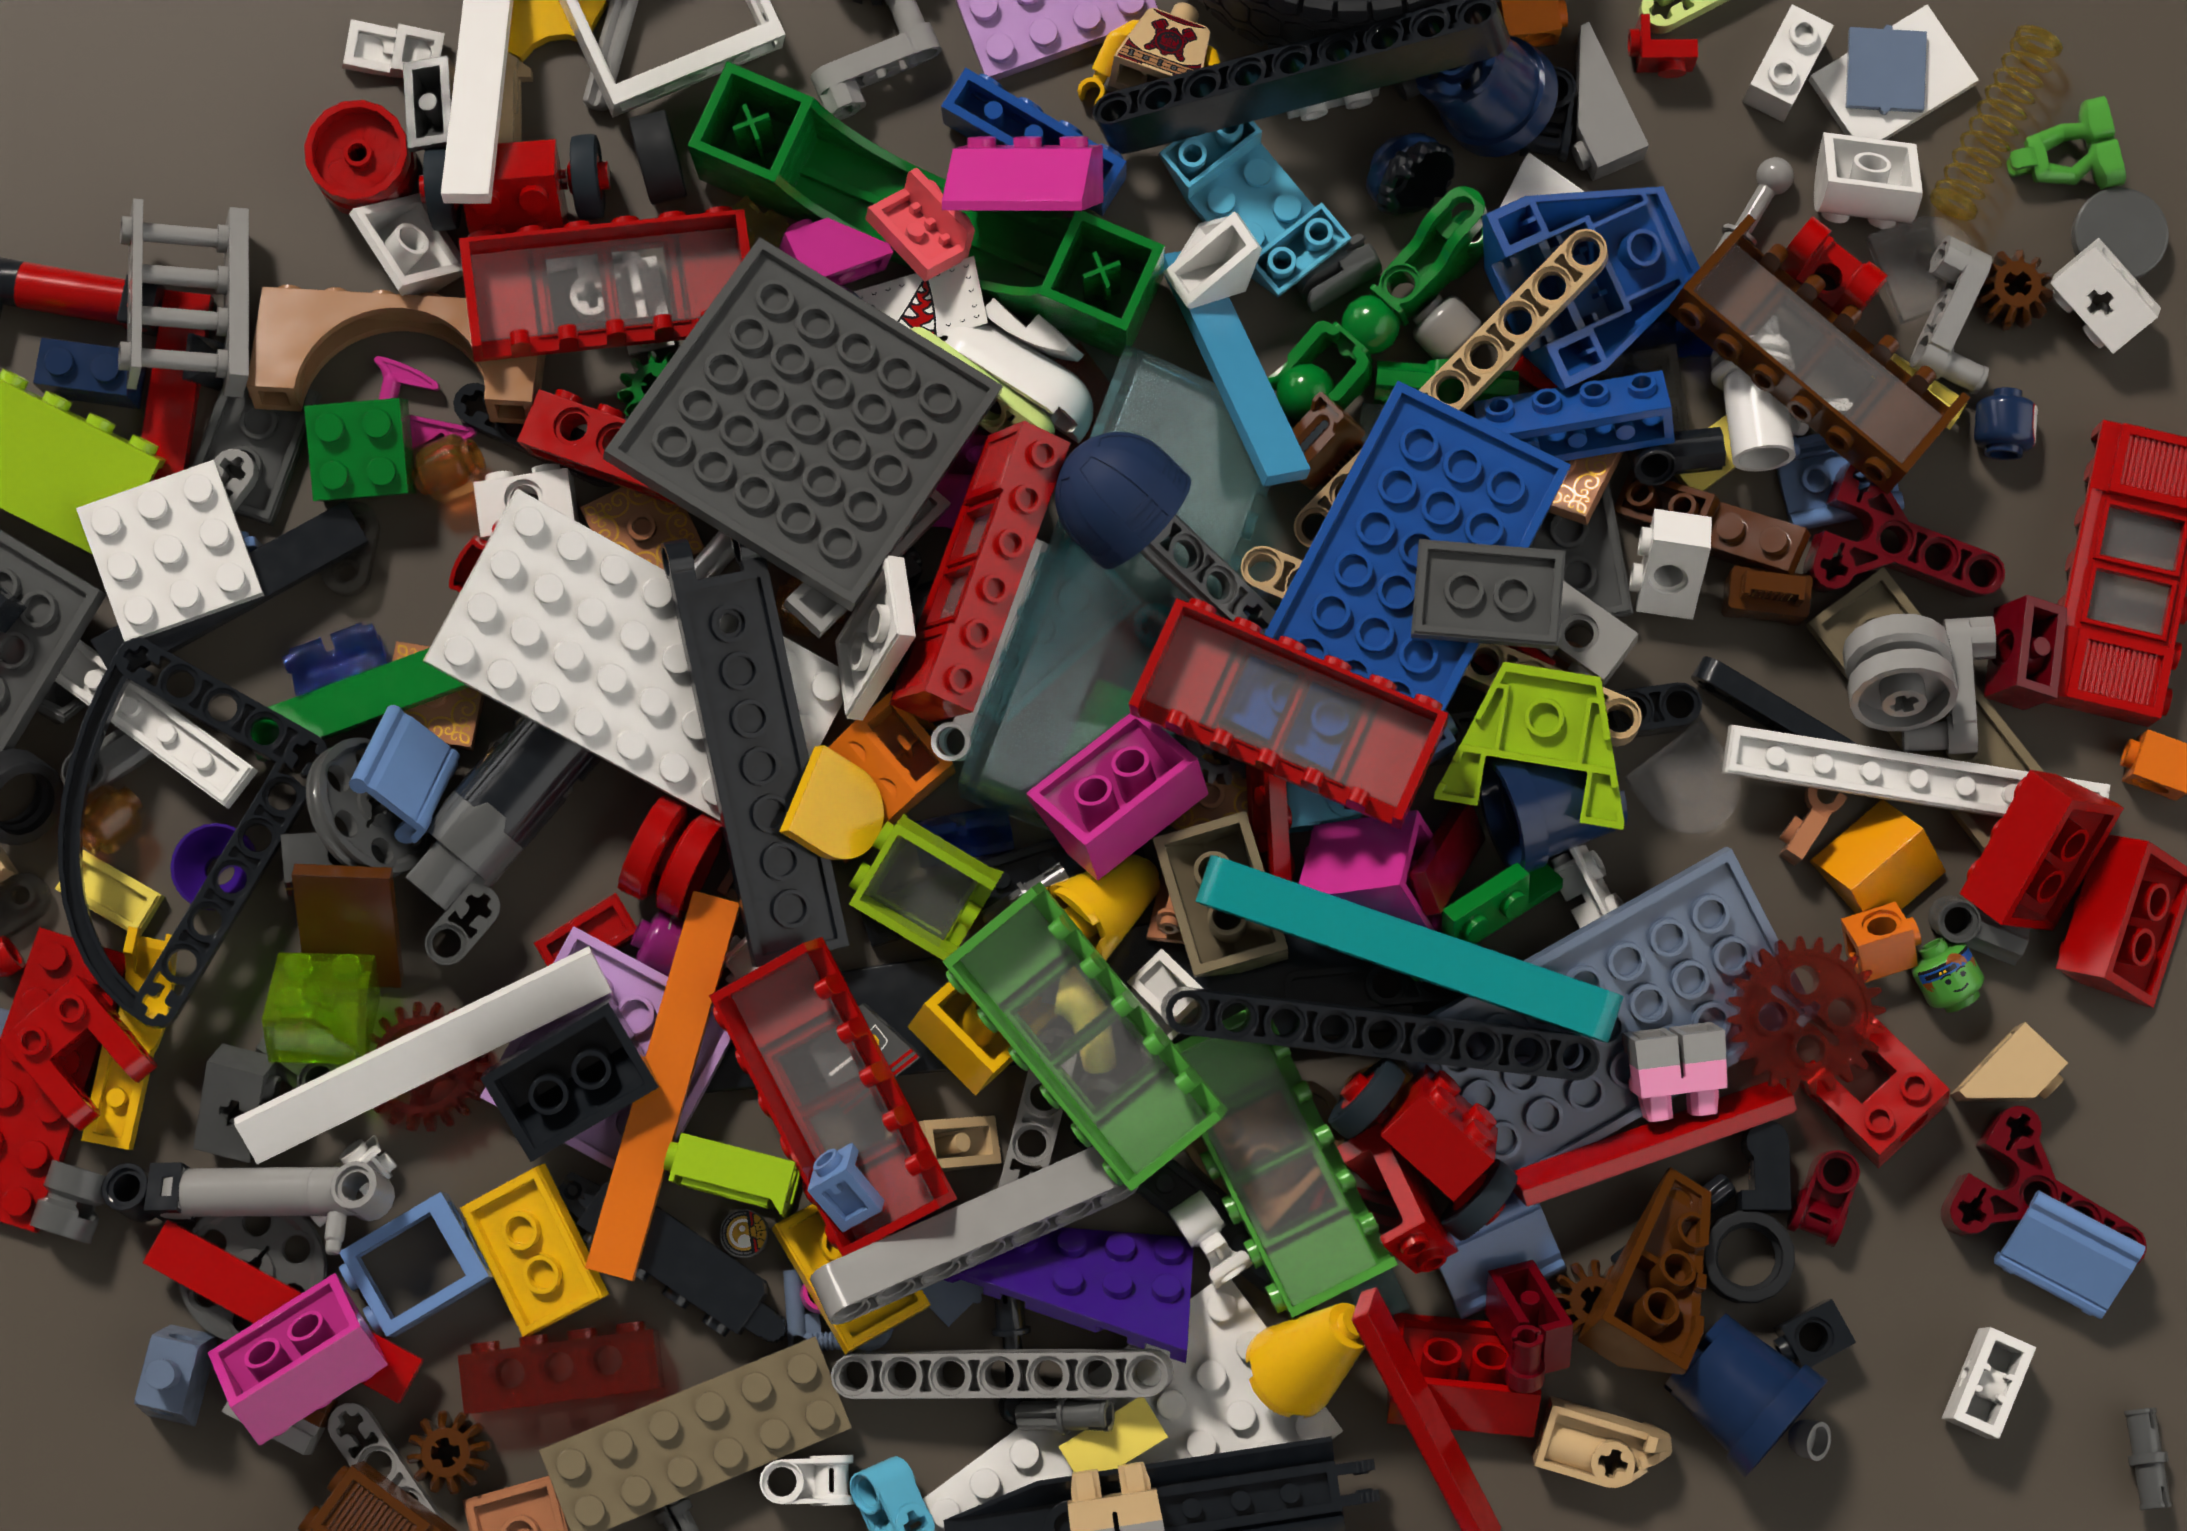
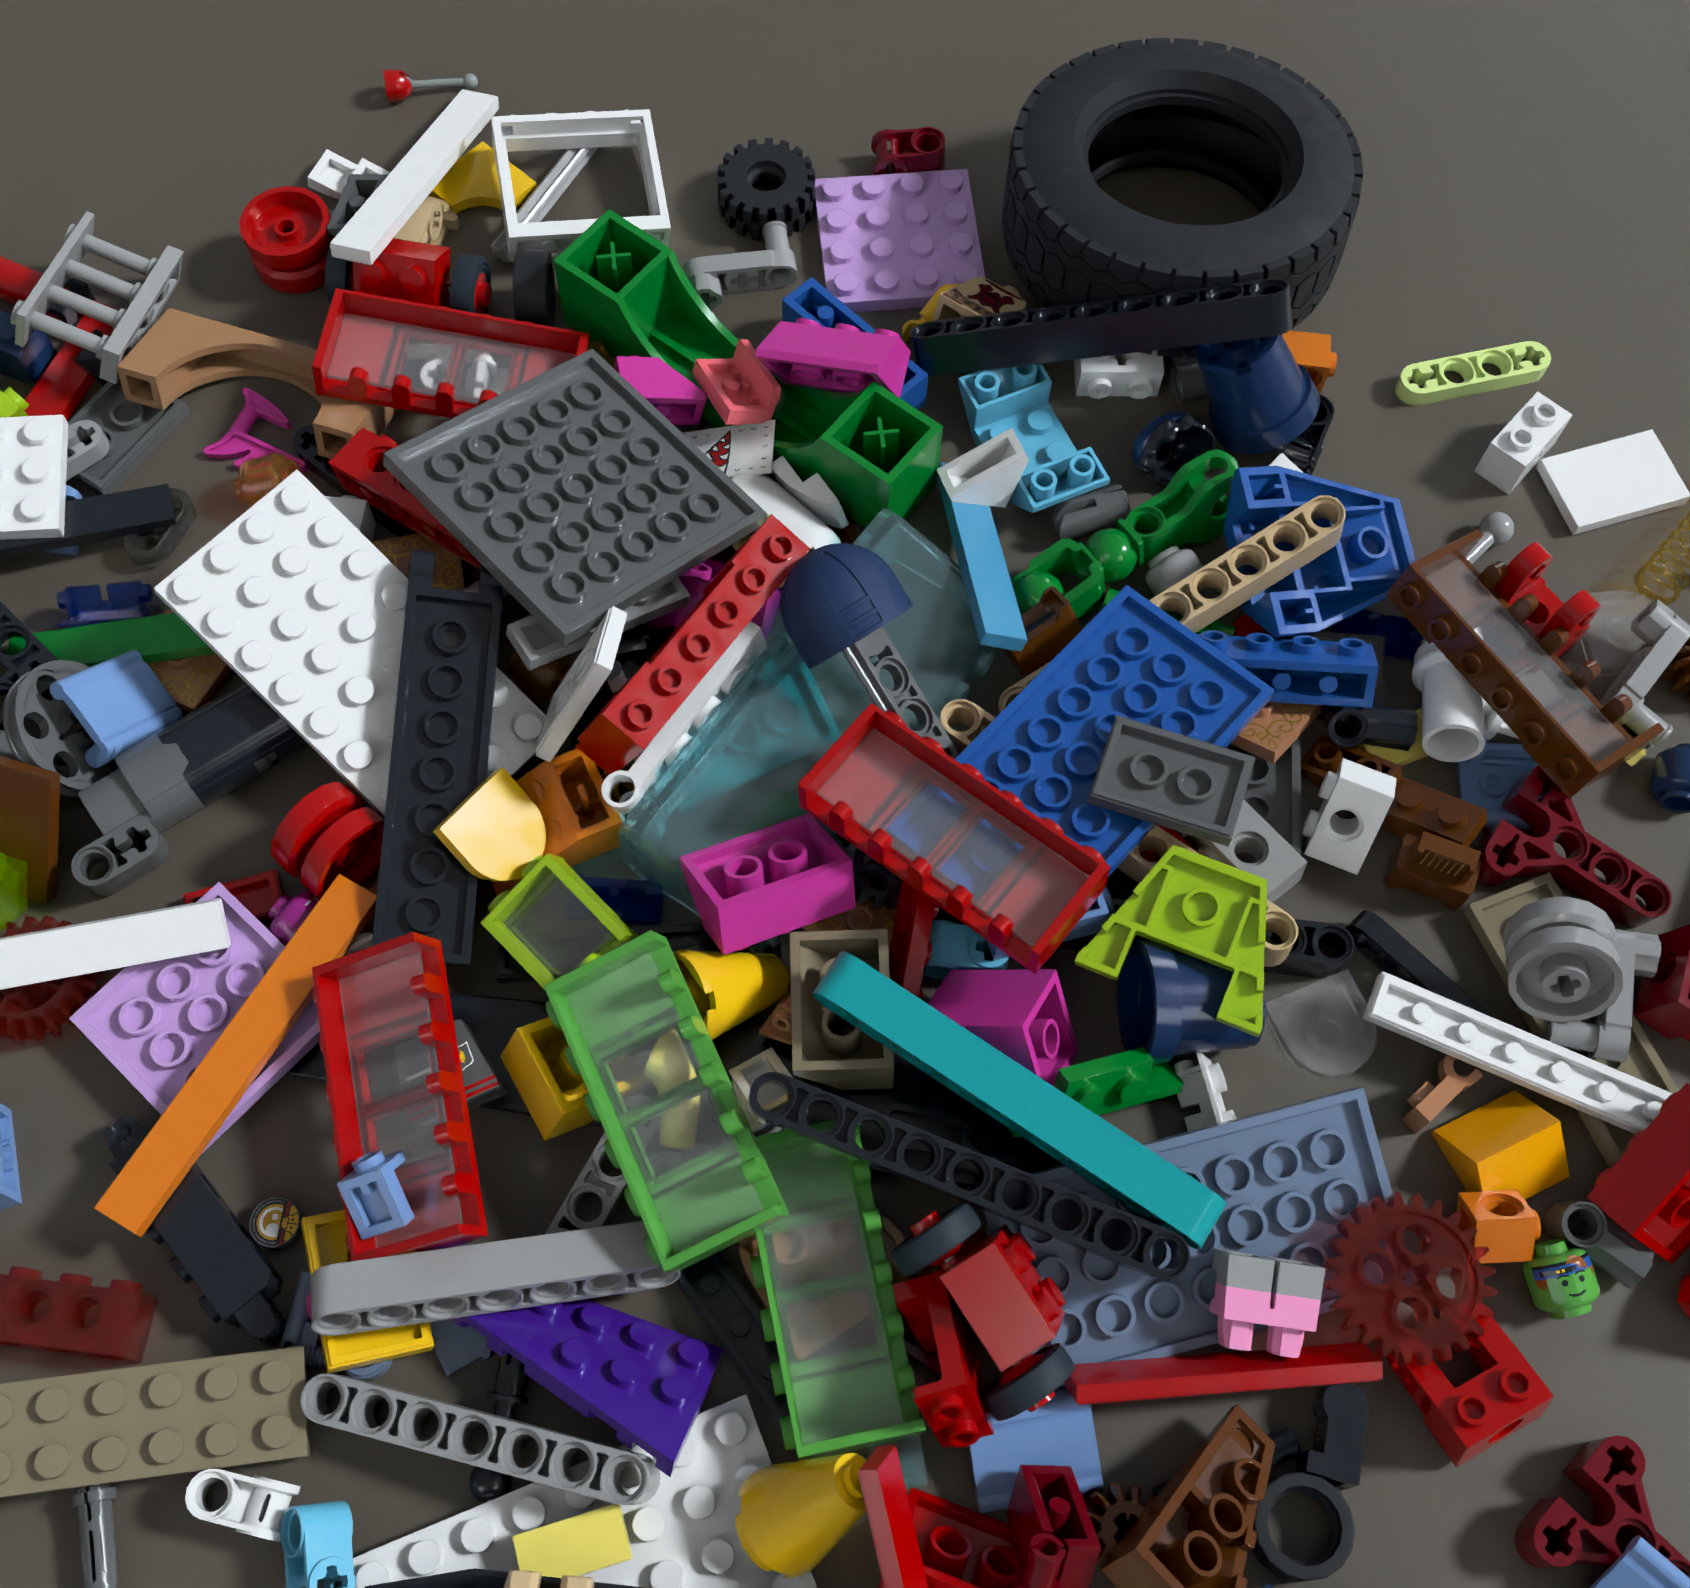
camera: 10 degrees right, 15 degrees down
(360, 449) = (197, 446): green brick -> none
(408, 246) = (296, 304): white slope -> none
(534, 1250) = (58, 1181): yellow tile -> none
(570, 1079) = (148, 1012): black slope -> none
(733, 1173) = (277, 1153): lime window -> none
(963, 1141) = (517, 1186): tan slope -> none
(1065, 1415) = (530, 1503): dark grey axle -> none
(1202, 1228) = (732, 1338): white leg -> none
(1447, 858) = (1073, 1026): dark red tile -> none
(1603, 124) = (1352, 443): light grey slope -> none
(1666, 56) = (1412, 413): red bracket -> none
(1824, 1199) = (1389, 1490): dark red piece -> none
(1867, 180) = (1585, 548): white brick -> none
(1886, 69) = (1609, 468): sand blue piece -> none
(2014, 1070) = (1619, 1398): tan slope -> none

